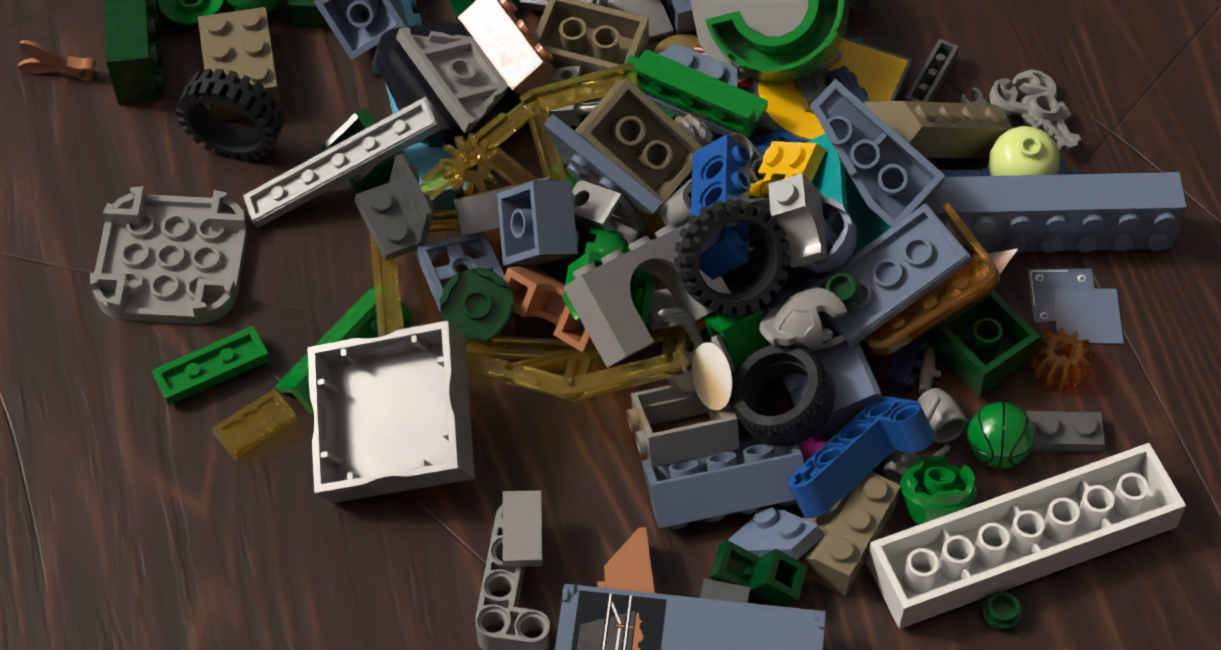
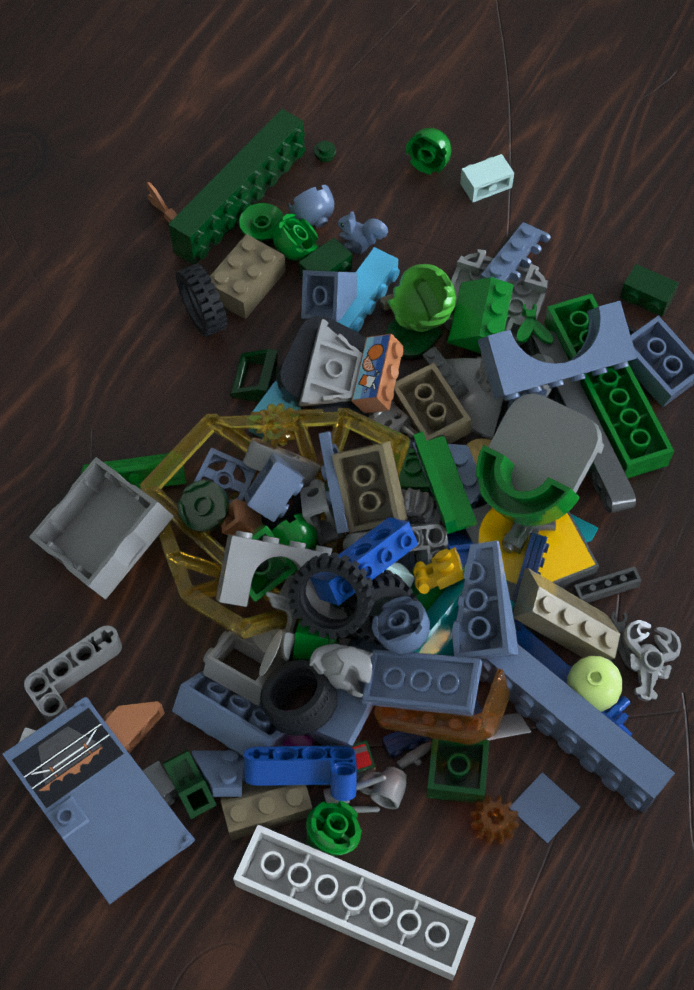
camera: 45 degrees right, 5 degrees up
(170, 258) = (109, 354): light grey tile -> none
(210, 365) = (64, 427): green plate -> none
(254, 424) = (50, 475): clear yellow plate -> none
(342, 162) = (229, 371): light grey tile -> none
(397, 211) = (212, 421): dark grey bracket -> none
(522, 528) = (99, 647): light grey tile -> none
(800, 212) = (392, 605): light grey arch -> none
(845, 287) = (384, 668): dark green plate -> none
(1001, 435) = (405, 831): green piece -> none
(1002, 611) = (299, 931): dark green plate -> none
(1041, 284) = (550, 767): sand blue sticker -> none
(1067, 431) = (452, 862): dark grey plate -> none

